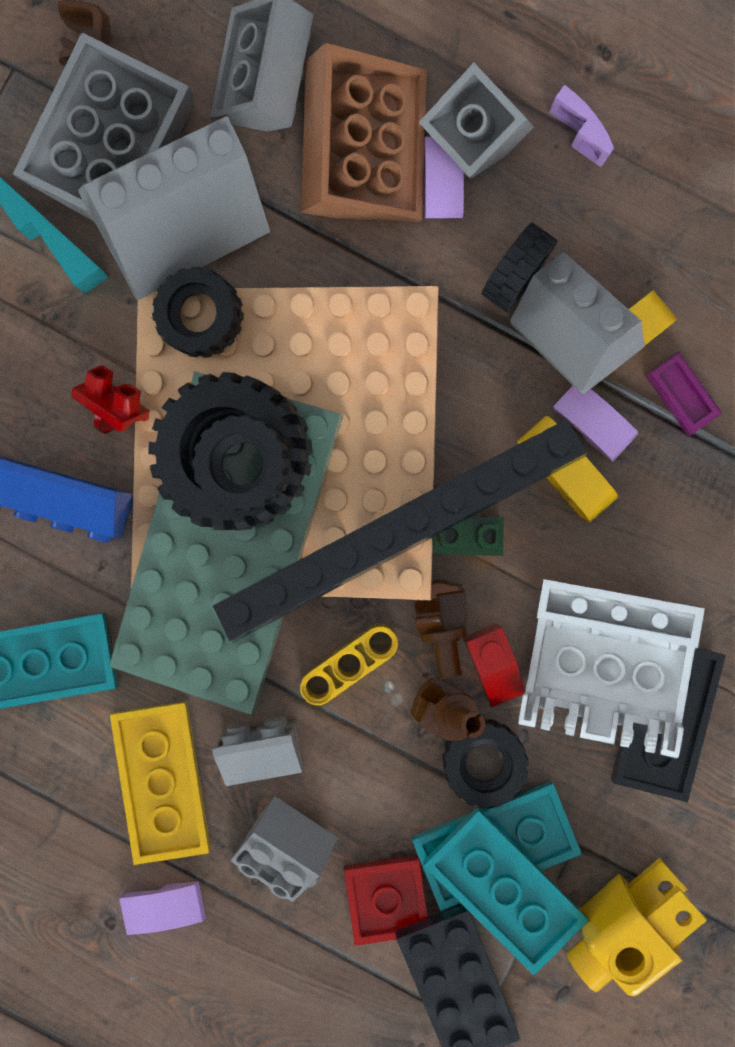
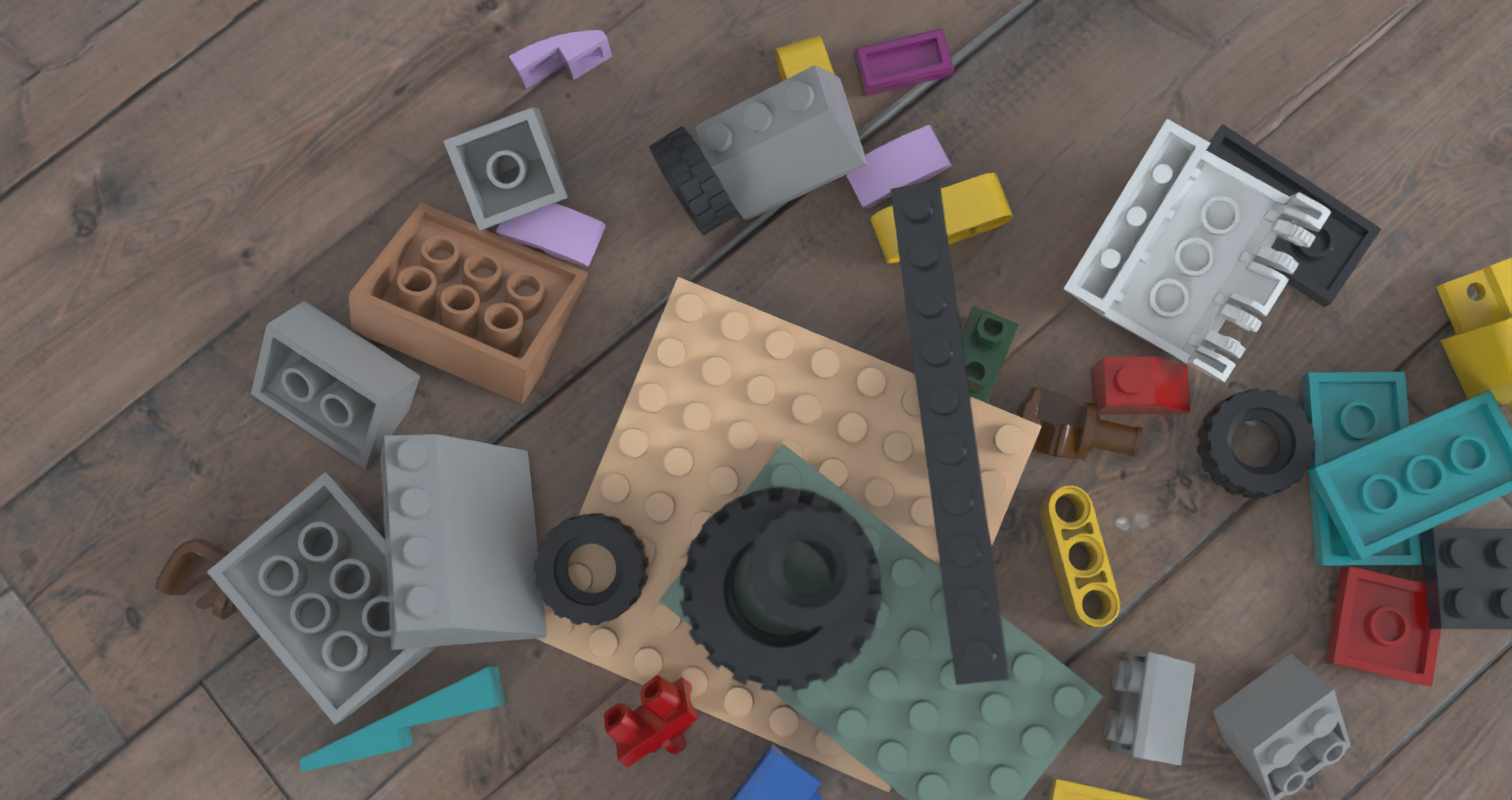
camera: 65 degrees left, 10 degrees down
(447, 712) = (1182, 459): reddish brown piece -> none

